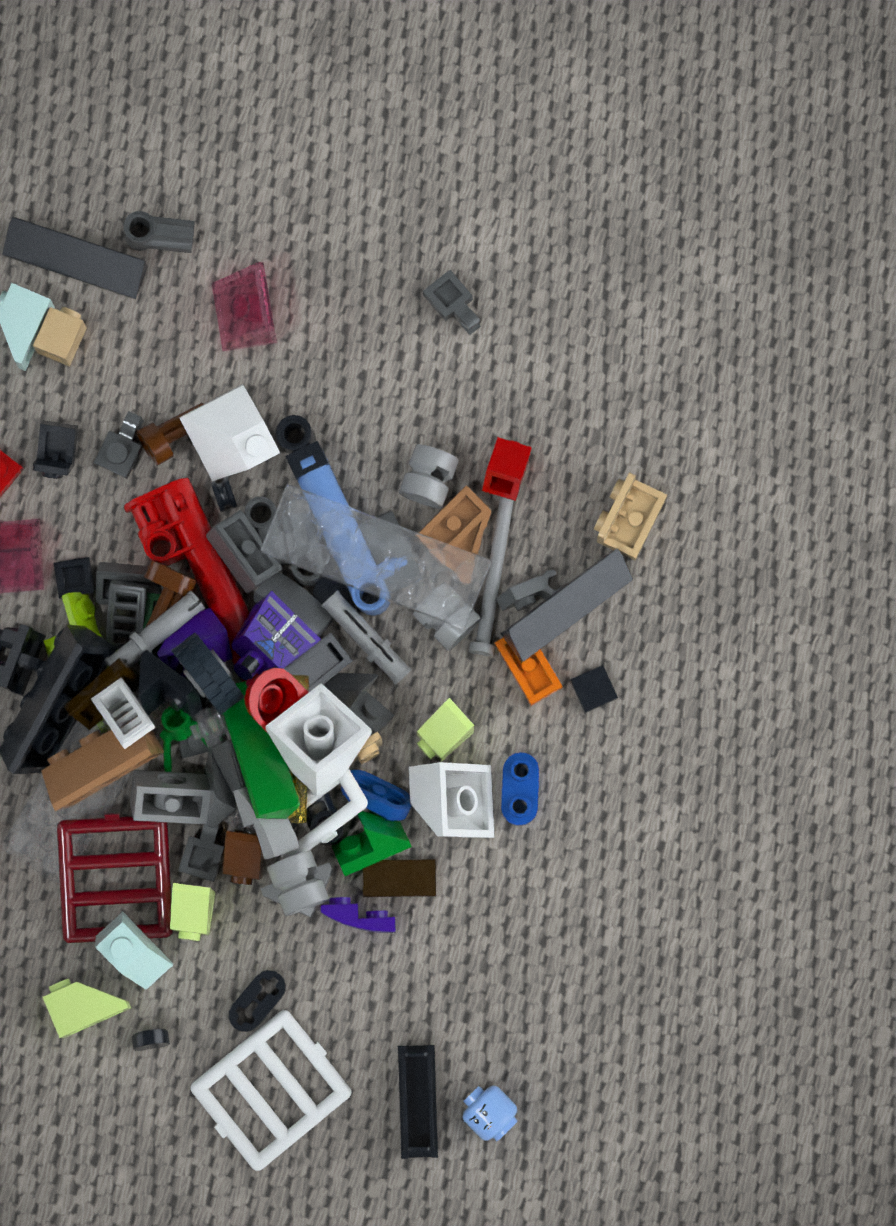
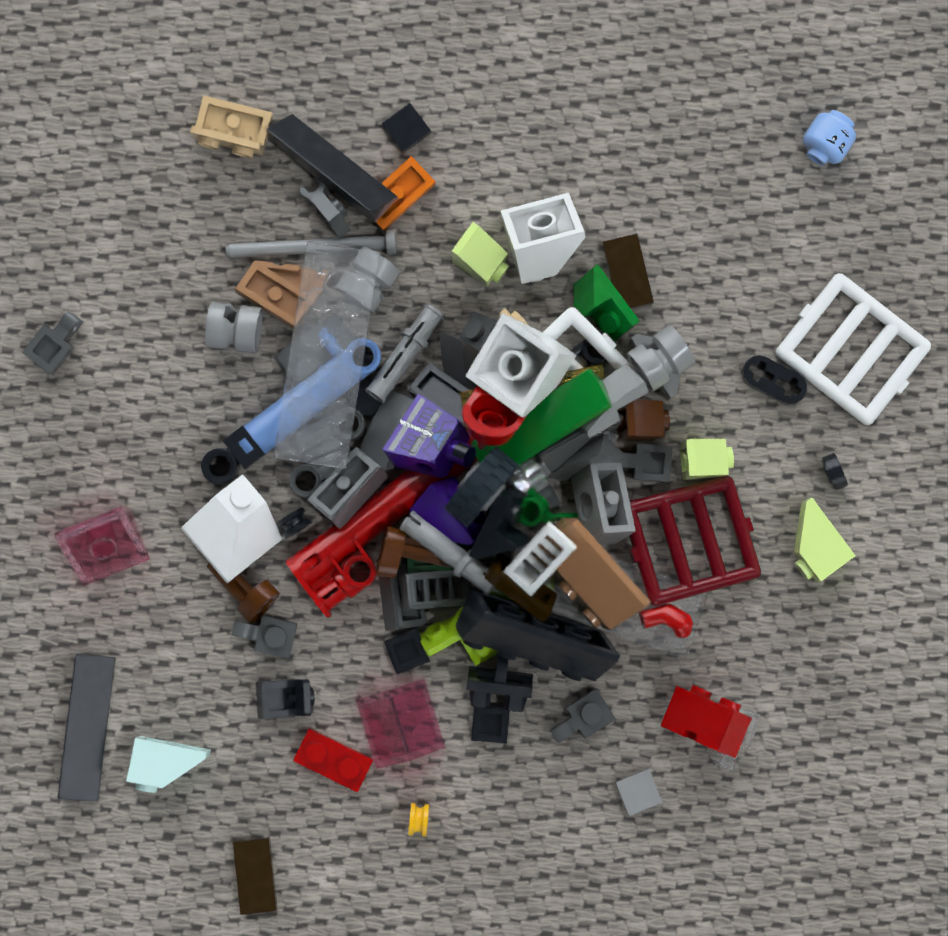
camera: 100 degrees left, 5 degrees up
(43, 838) = (670, 615): none -> red arm
(60, 335) = (168, 721): tan brick -> none
(132, 951) = (756, 509): light aqua slope -> none
(163, 235) = (43, 643): dark grey piece -> none
(345, 913) = (676, 285): dark purple slope -> none
(382, 797) = (556, 297): blue plate -> none
(417, 1101) = (833, 209): black container -> none
(506, 468) = (210, 253): red brick -> none
(520, 788) = (517, 176): blue plate -> none

